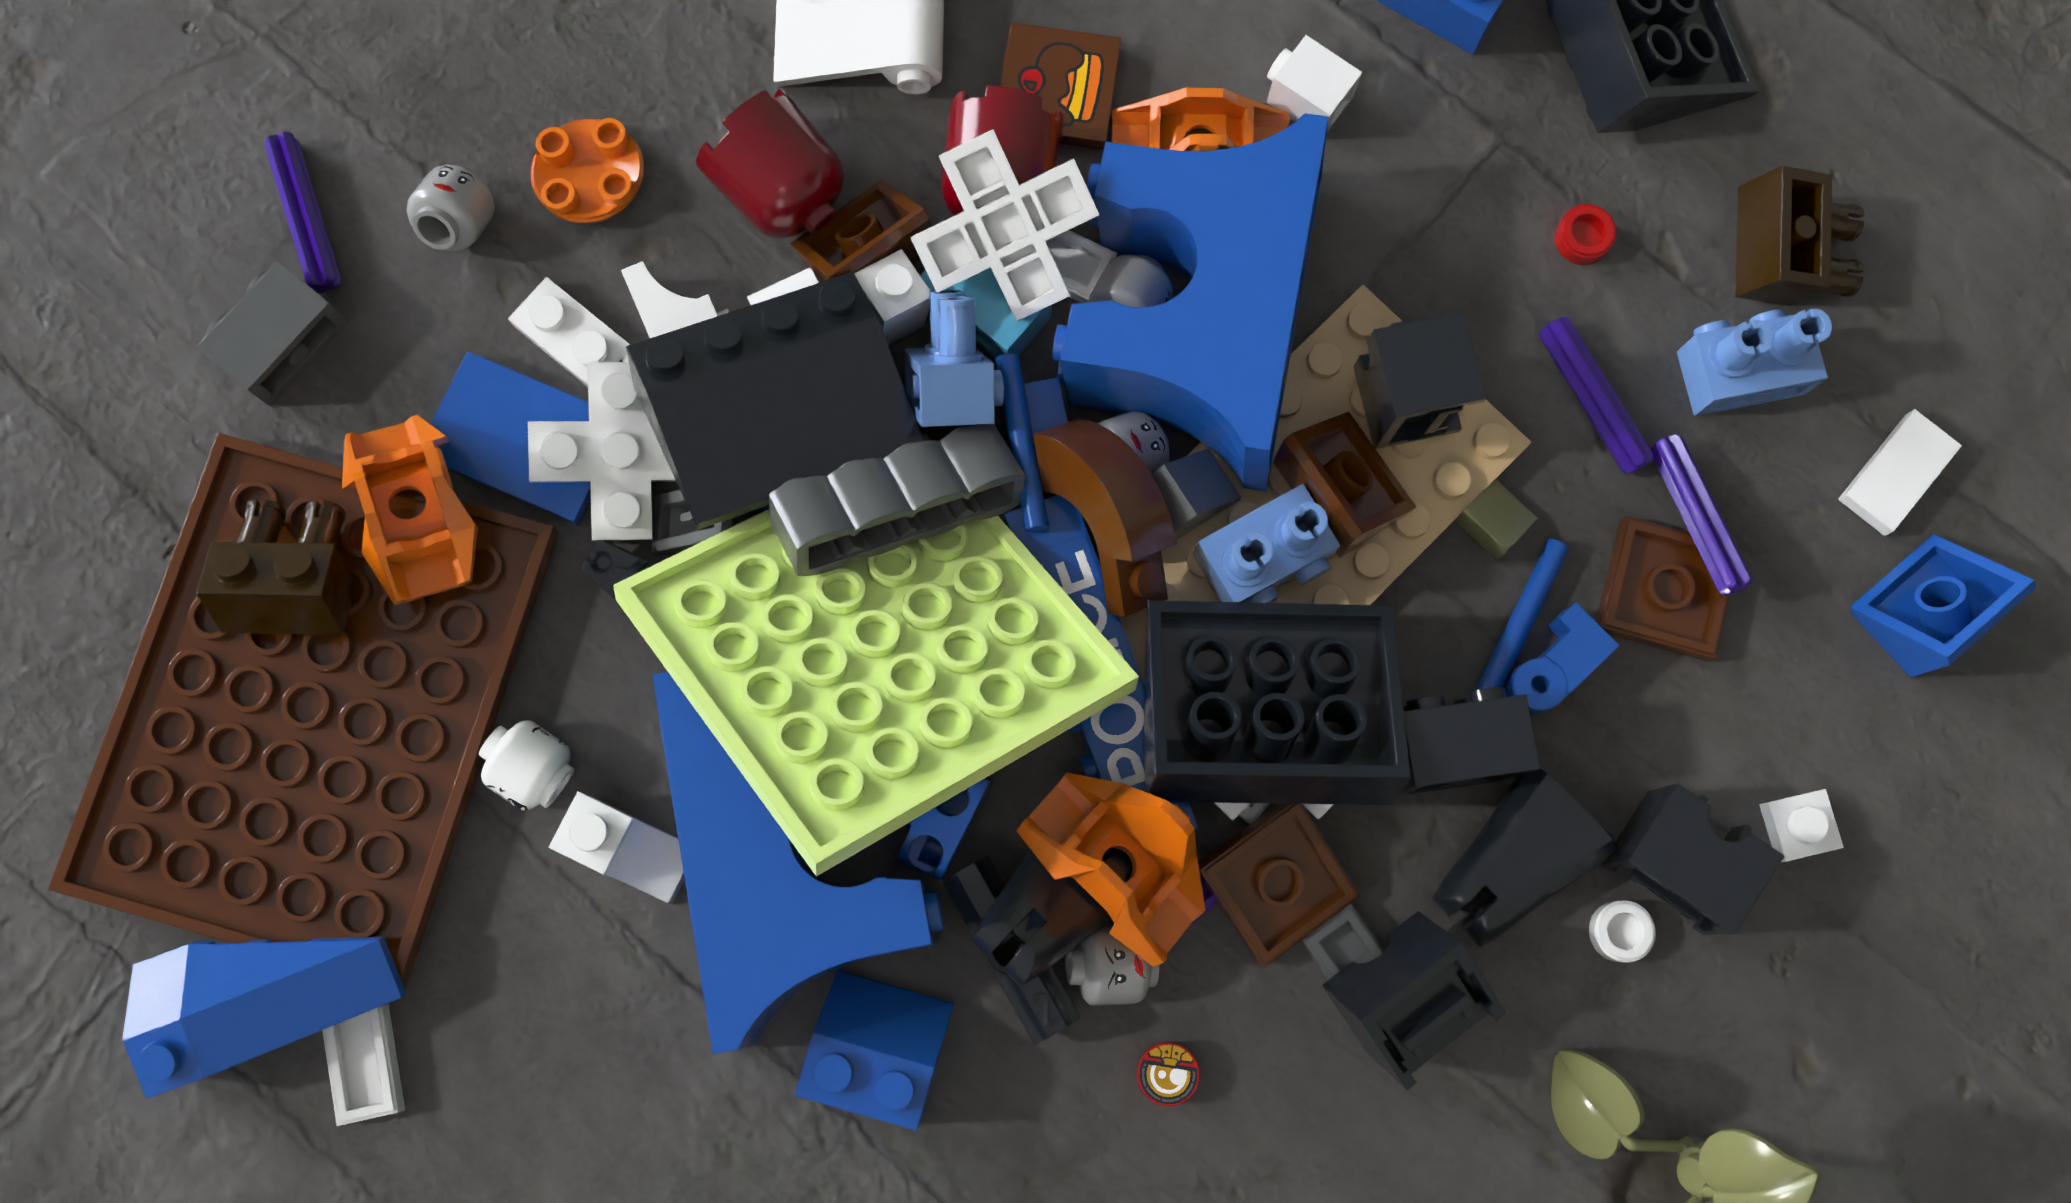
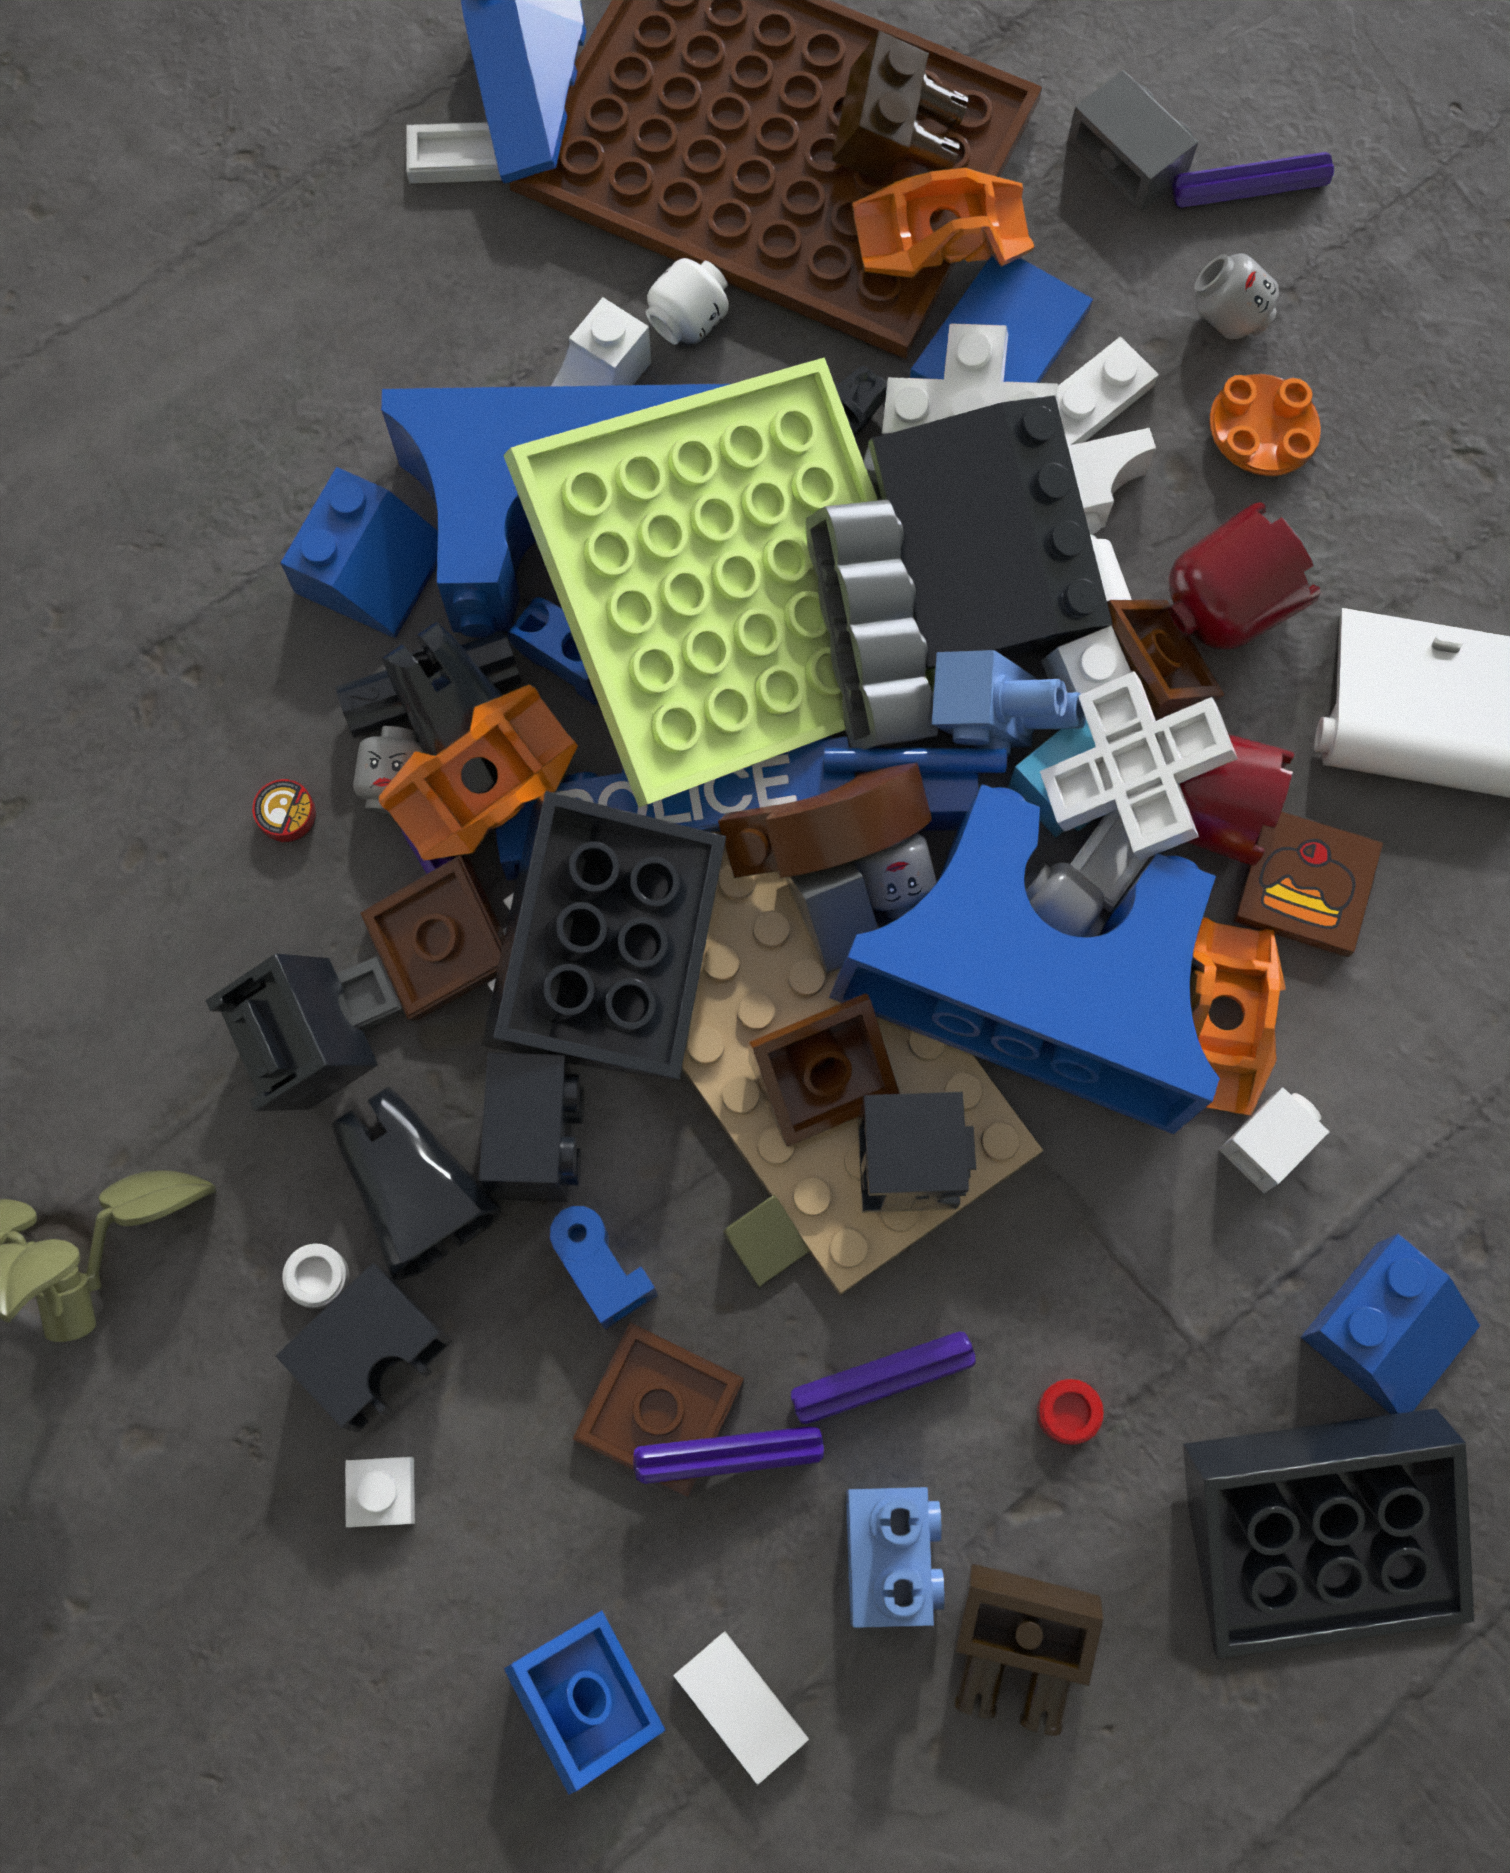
camera: 100 degrees right, 5 degrees down
(1268, 549) = (760, 971): medium blue brick -> none
(1524, 615) = (654, 1245): blue bar -> none

